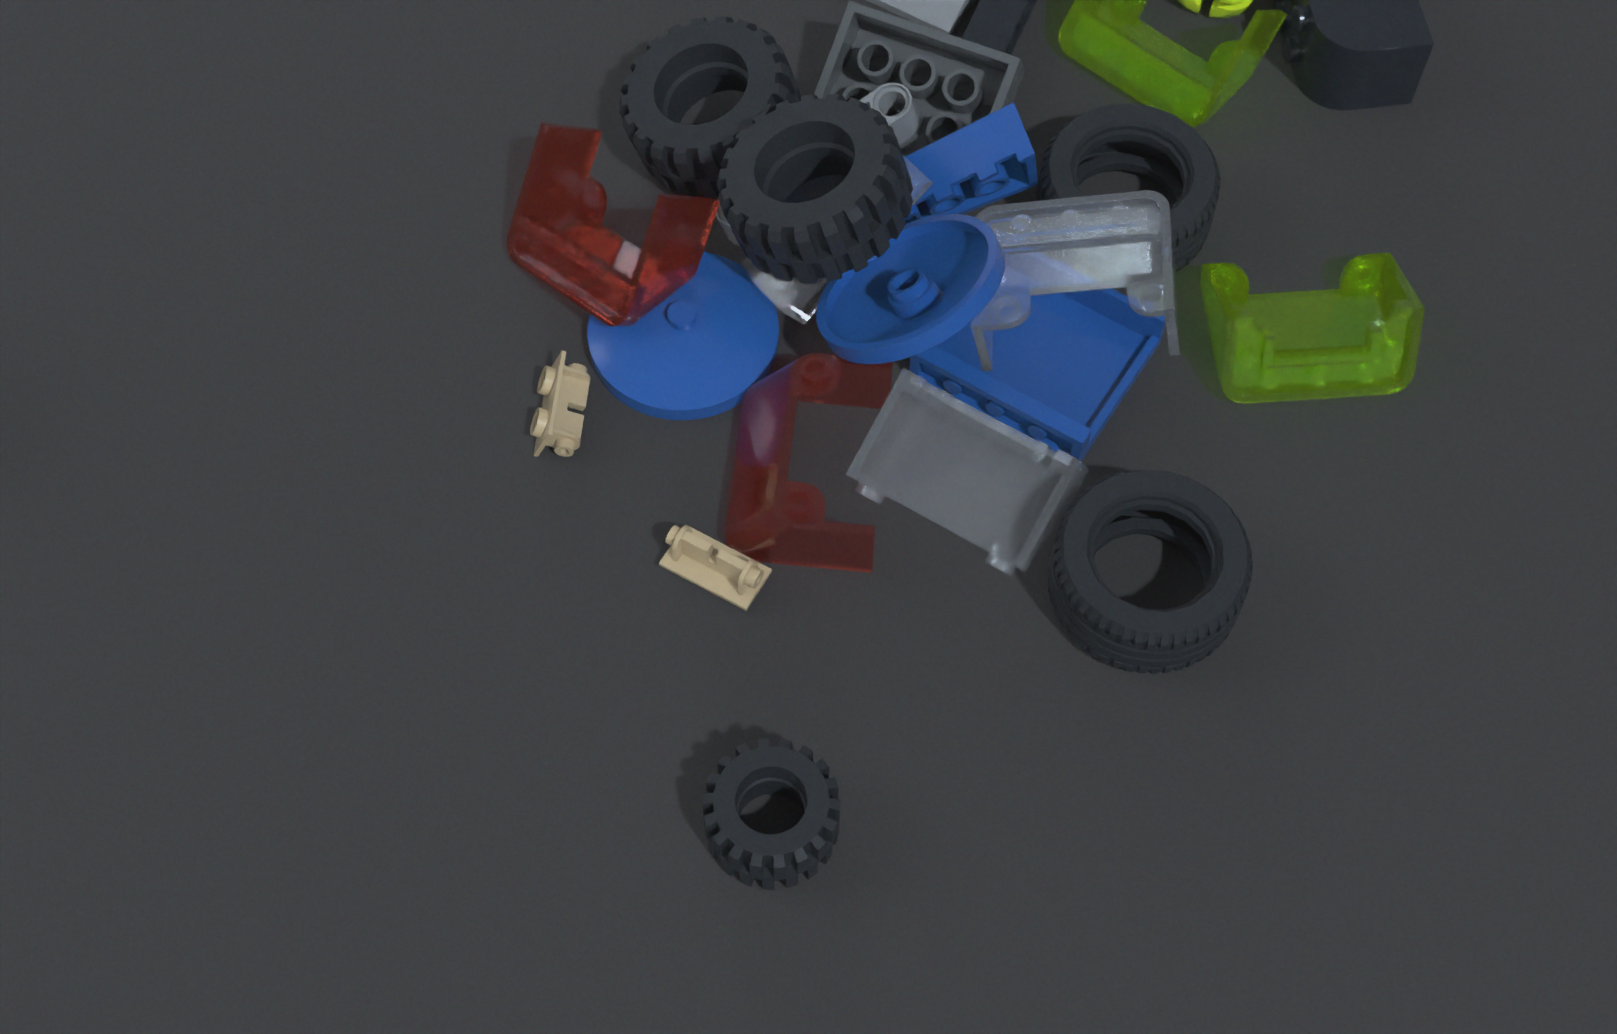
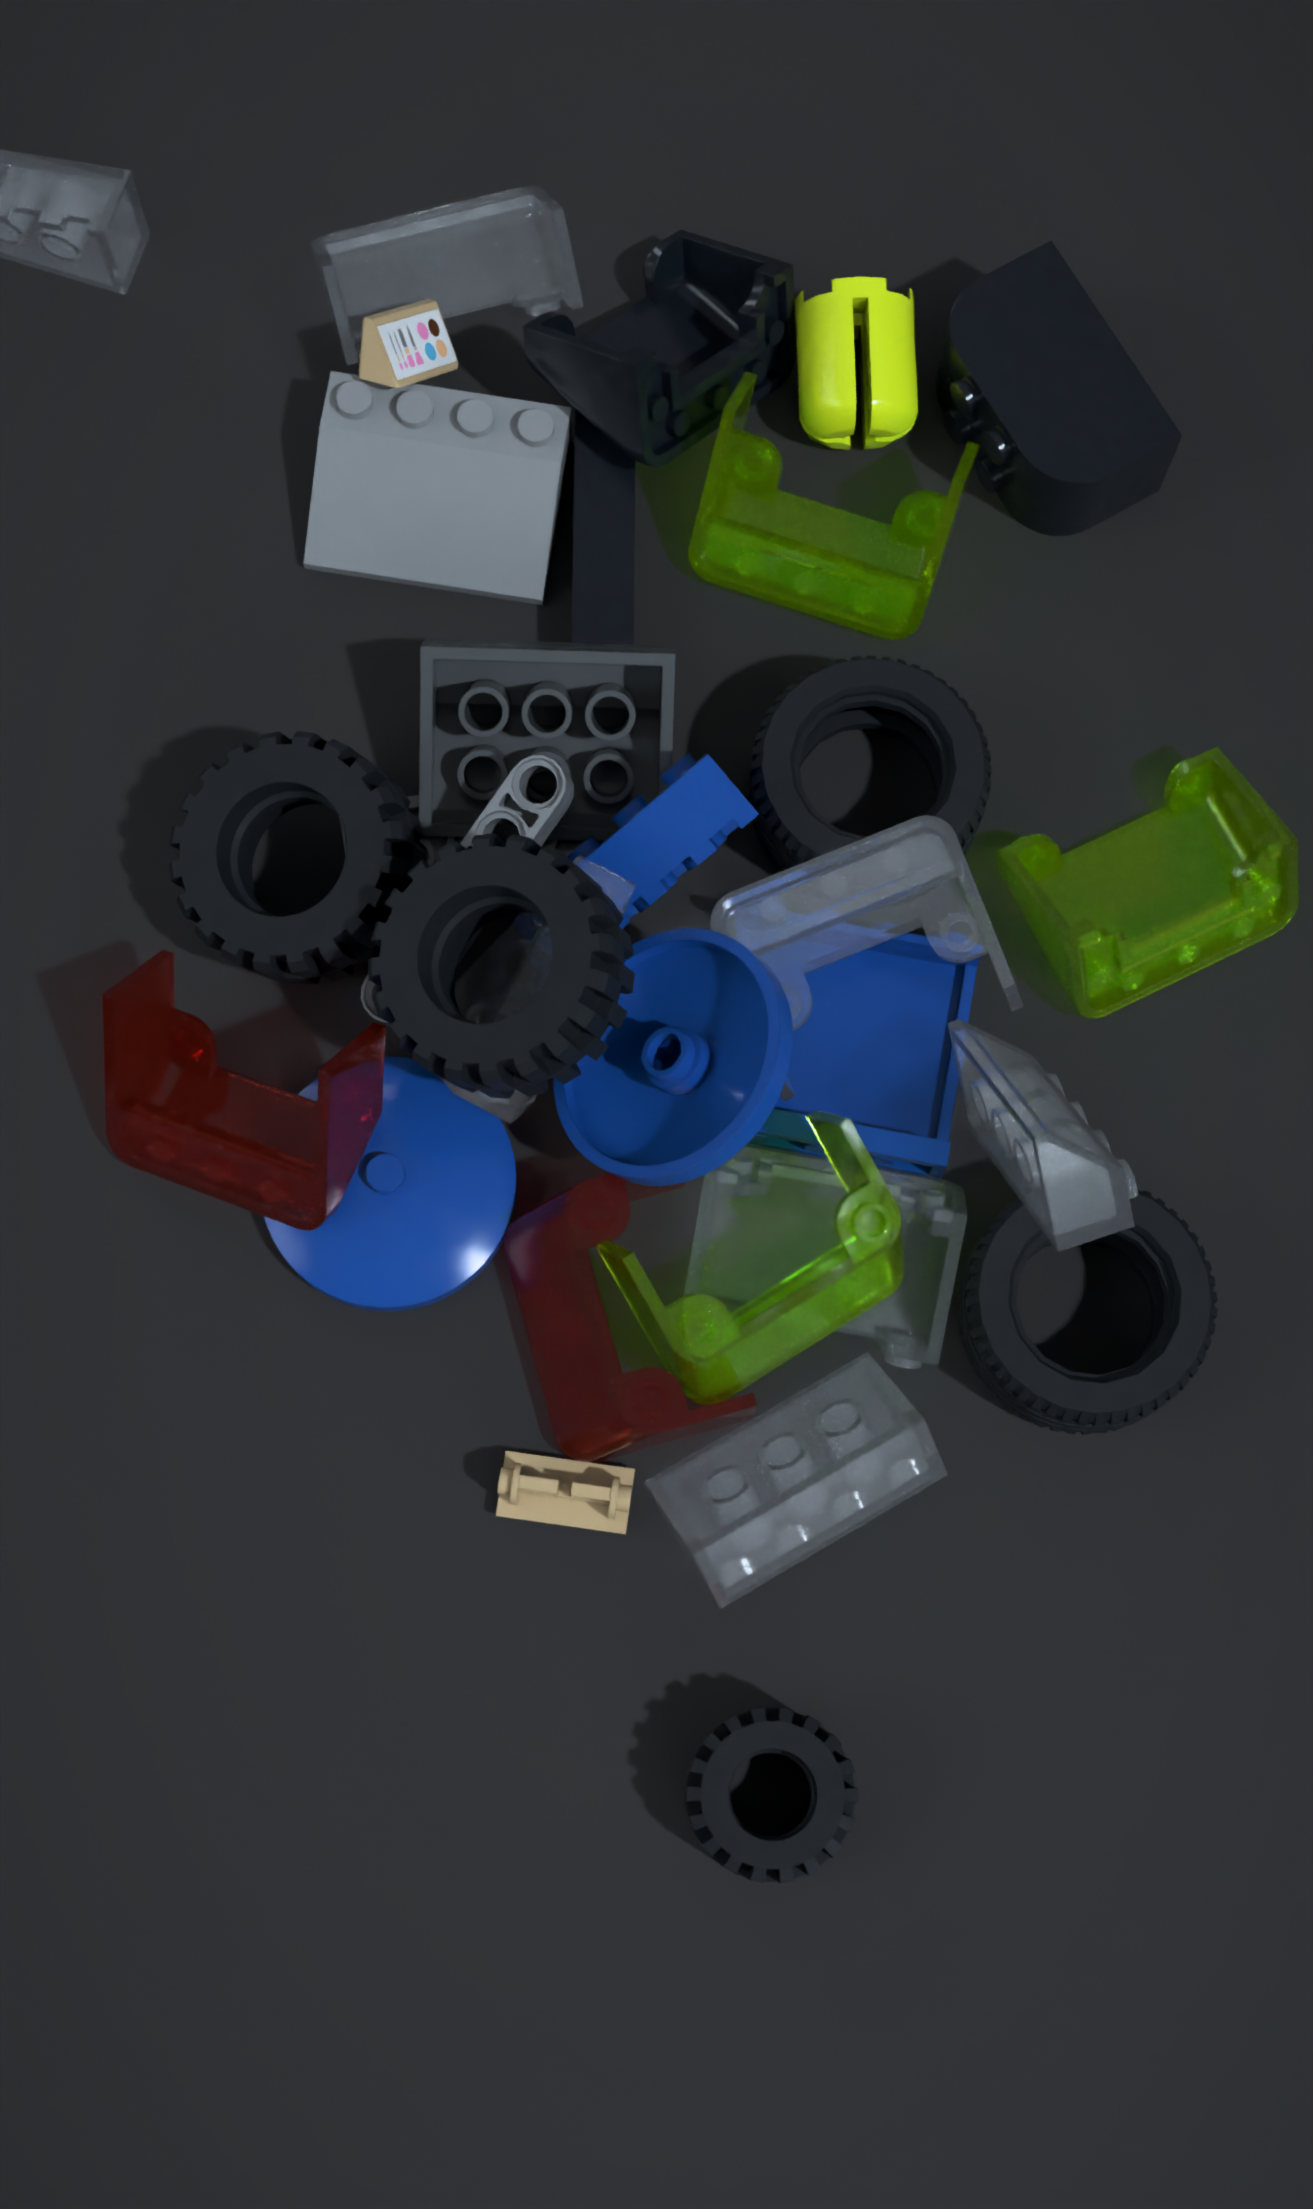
camera: 25 degrees left, 15 degrees up
(553, 423) = (281, 1376): tan hinge -> none
(887, 617) = (796, 1478): none -> clear slope
(929, 488) = (725, 1351): none -> clear neon green windscreen
(1154, 433) = (1041, 1141): none -> clear slope

